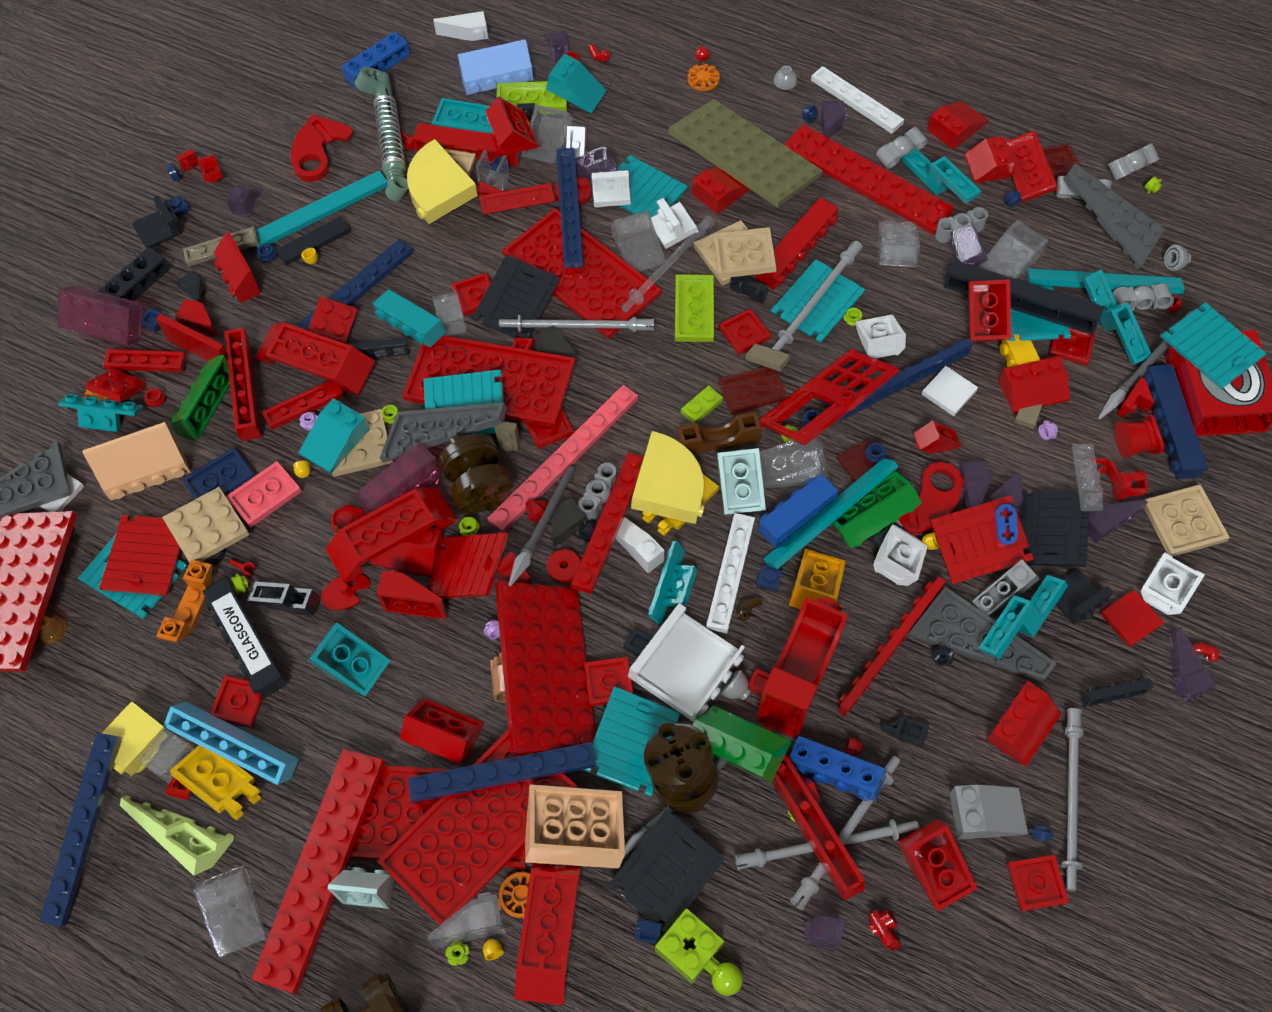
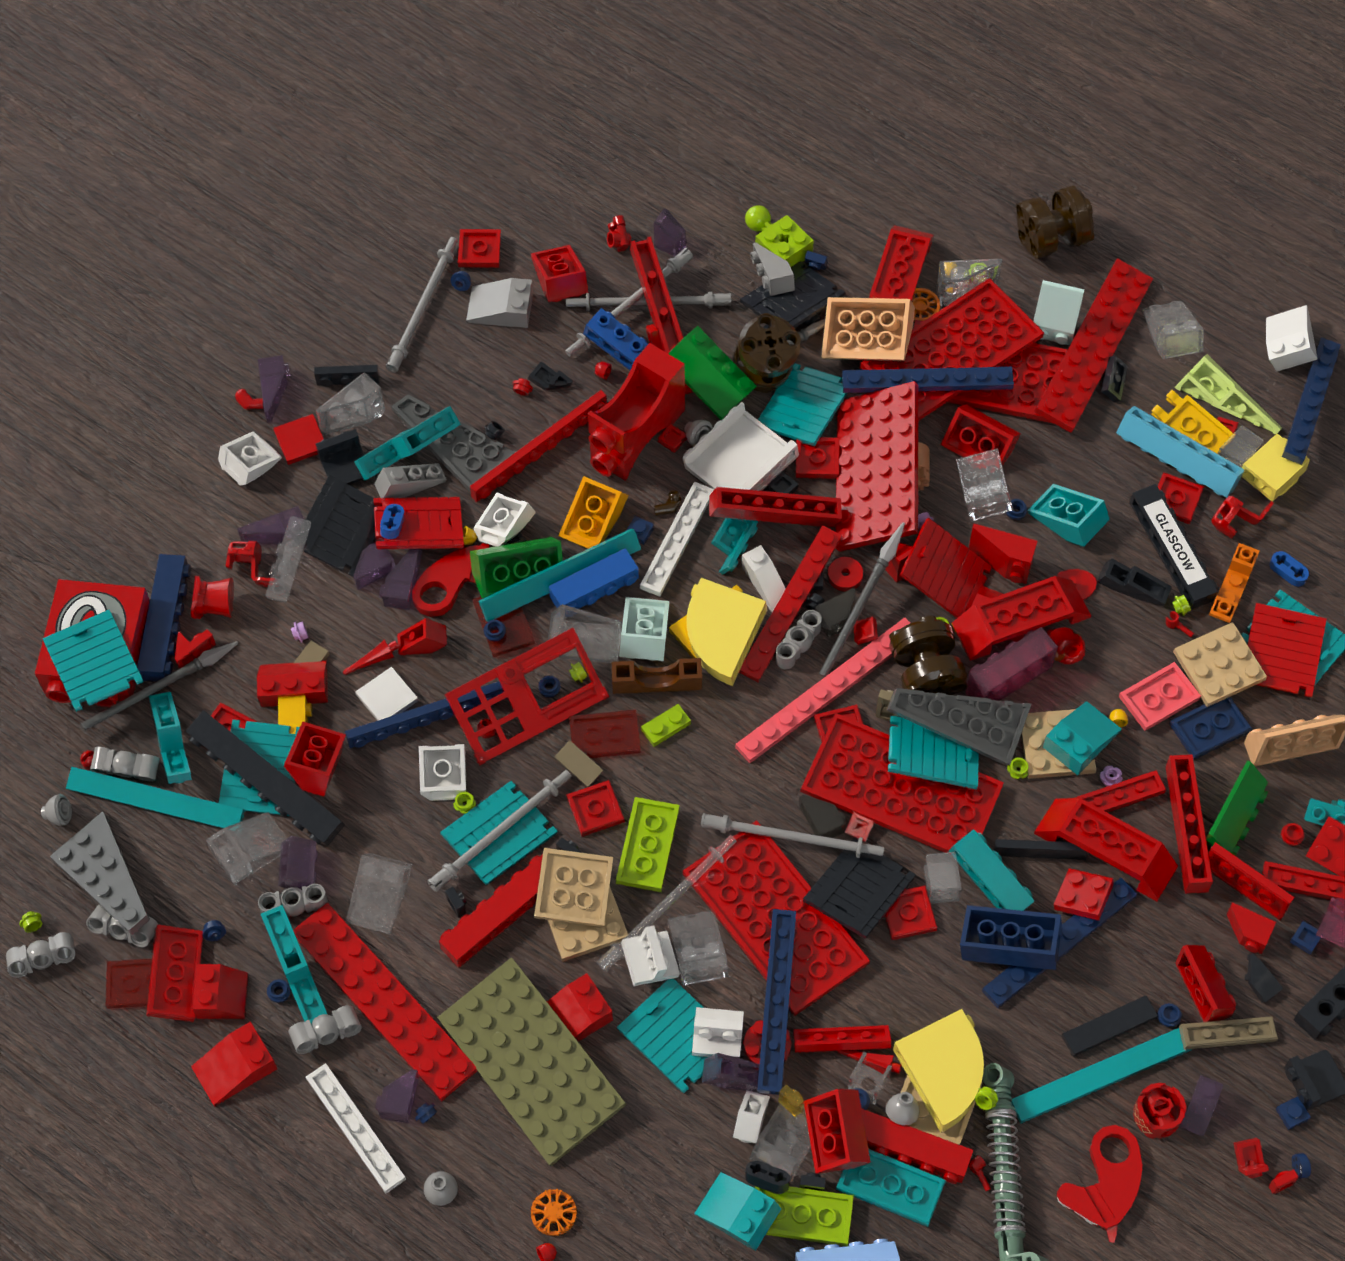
camera: 170 degrees left, 0 degrees up
(95, 913) = (1290, 339): none -> white slope
(133, 637) = (1289, 568): none -> blue beam
(174, 683) = (1229, 508): none -> red piece
(276, 184) = (1159, 1110): none -> red brick
(299, 828) = (1114, 378): none -> black plate
(310, 256) = (1118, 1000): yellow hinge -> none
(393, 269) = (1011, 937): none -> dark blue brick
(401, 653) = (1021, 506): none -> dark blue plate
(403, 161) = (986, 1098): none -> lime plate
(435, 672) = (984, 485): none -> clear slope
(466, 154) = (903, 1109): none -> light grey brick
(548, 146) = (791, 1100): none -> clear yellow plate
(559, 102) = (767, 1177): none -> black beam
(640, 596) = (775, 507): none -> red brick
(690, 892) = (774, 270): none -> light grey slope
(835, 243) = (456, 901): none -> black plate
(931, 710) = (522, 387): none -> red plate
(969, 424) = (379, 653): none -> red piece
(1025, 724) = (443, 365): red slope -> none
(1088, 654) = (352, 406): none -> clear slope
(1185, 520) = (204, 517): tan plate -> none

